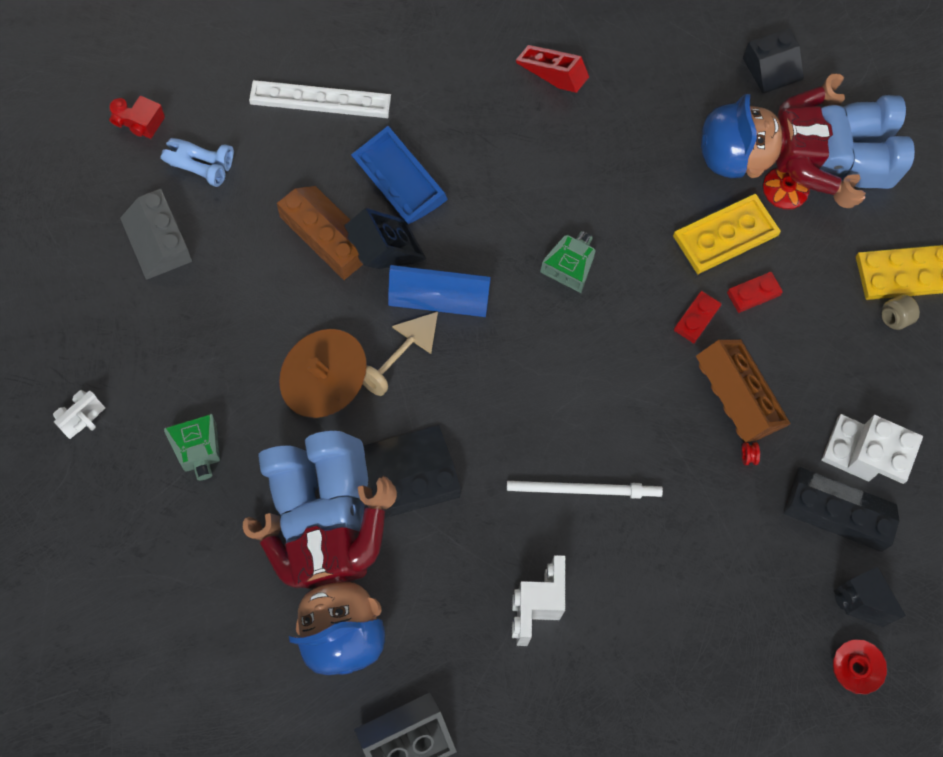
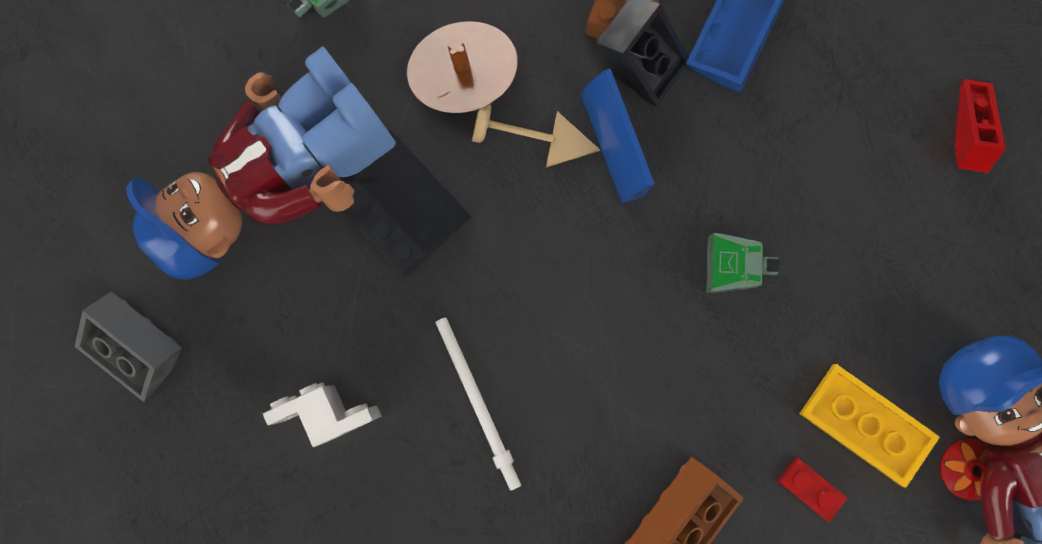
camera: 70 degrees right, 15 degrees up
(697, 317) = (745, 437): red plate -> none

